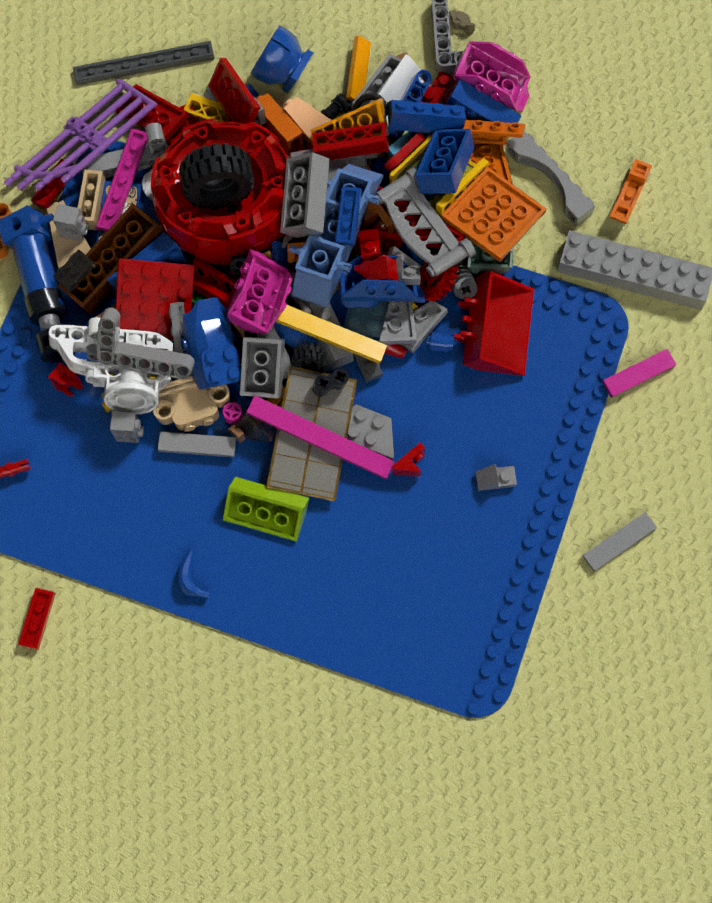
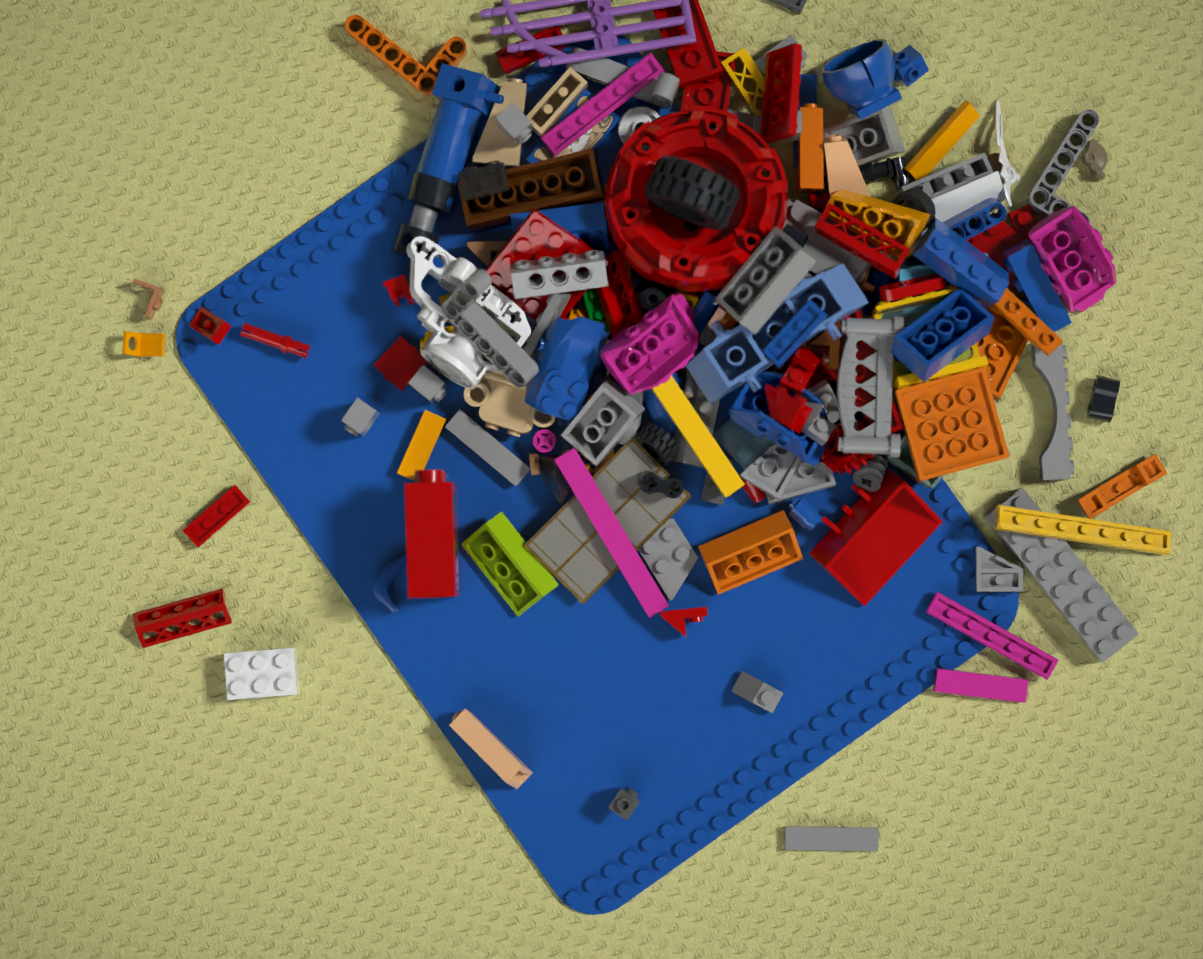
camera: 30 degrees right, 15 degrees up
(53, 703) = (180, 614): none -> red fence
(93, 479) = (359, 418): none -> light grey brick
(97, 431) = (400, 363): none -> red piece
(141, 705) = (261, 673): none -> white brick
(150, 474) = (421, 444): none -> light orange tile
(190, 275) = (570, 280): none -> light grey brick
(197, 518) = (432, 536): none -> red brick
(306, 37) = (909, 66): none -> blue brick
(313, 90) = (870, 138): none -> light grey slope
(341, 641) = (490, 748): none -> light nougat slope
(418, 61) = (1007, 172): none -> white piece
(423, 390) = (750, 552): none -> orange slope
(461, 611) = (624, 802): none -> dark grey bracket
(576, 150) = (1103, 398): none -> black axle
(594, 295) = (996, 573): none -> light grey wing
(621, 336) = (992, 635): none -> dark pink tile
(626, 230) = (1082, 530): none -> yellow tile

